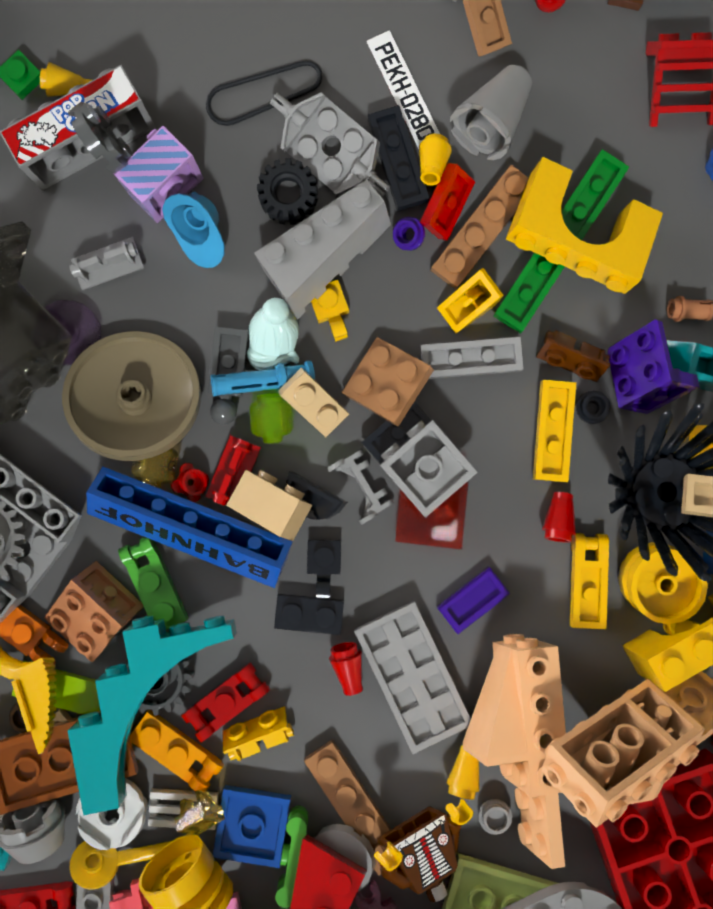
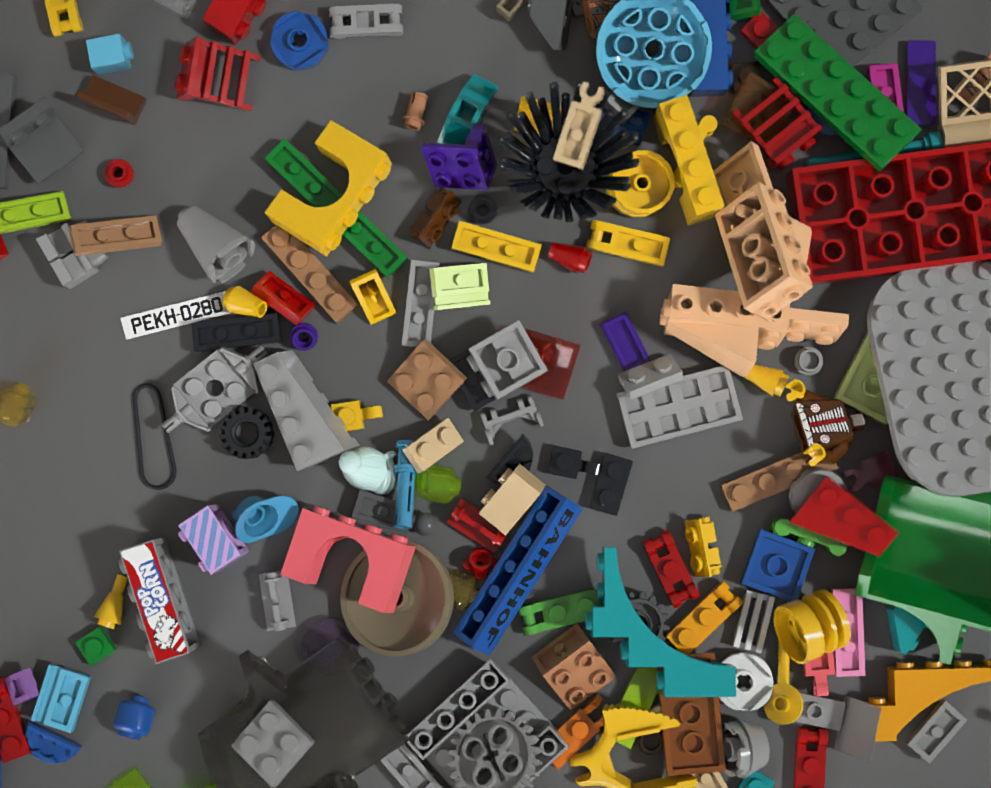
camera: 75 degrees left, 0 degrees up
(94, 132) = (182, 578): dark grey plate -> none
(174, 373) = (387, 556): none -> coral arch
(199, 817) = (759, 605): clear yellow tile -> none
(347, 664) = (659, 460): red cone -> none
(441, 637) = (650, 376): none -> light grey plate
(501, 397) = (459, 286): none -> yellowish green plate

